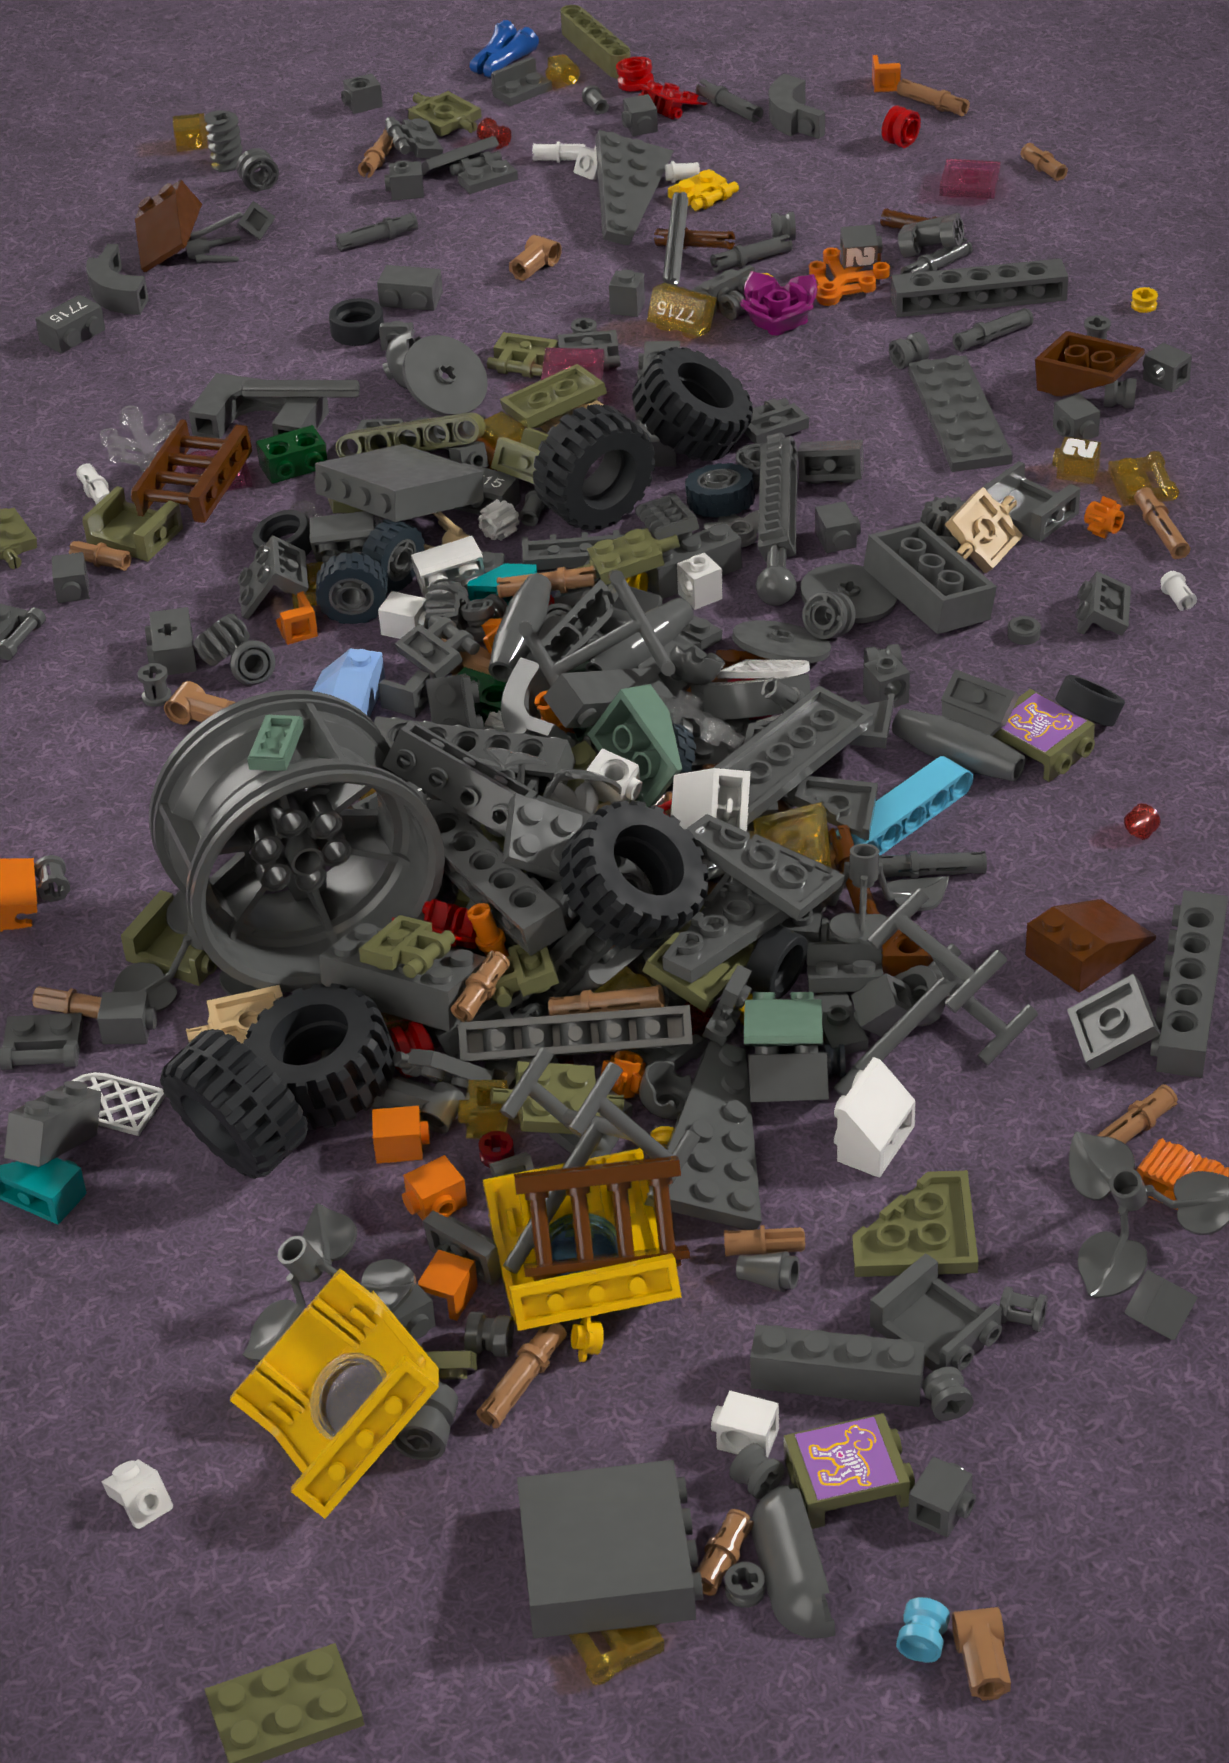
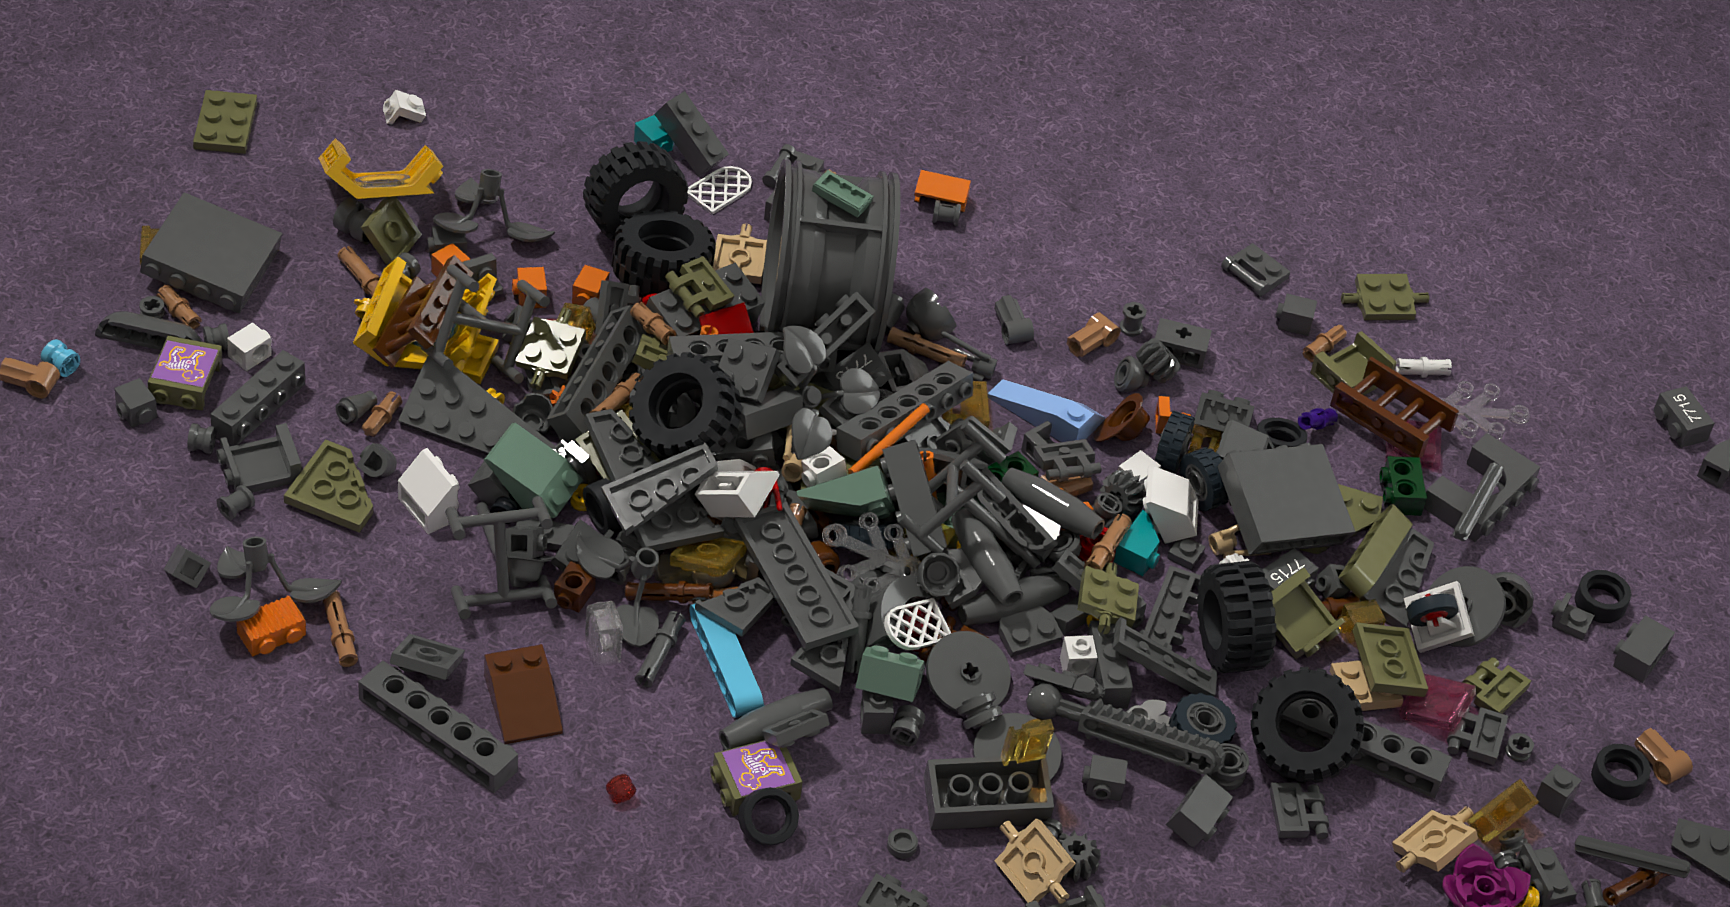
camera: 105 degrees right, 5 degrees up
(237, 519) = (1317, 418): none -> dark purple pin
(326, 637) = (1125, 421): none -> reddish brown piece
(474, 380) = (1438, 617): none -> white plate
(519, 726) = (890, 439): none -> orange bar
(570, 285) = (1615, 787): none -> black tyre
(746, 335) = (1435, 840): none -> tan plate
(749, 569) = (1066, 682): none -> dark grey hinge
(849, 658) = (890, 673): none -> sand green slope
(854, 1199) = (377, 461): none -> dark grey plate
(889, 518) = (1027, 743): none -> clear yellow plate
(965, 890) = (603, 634): none -> clear brick

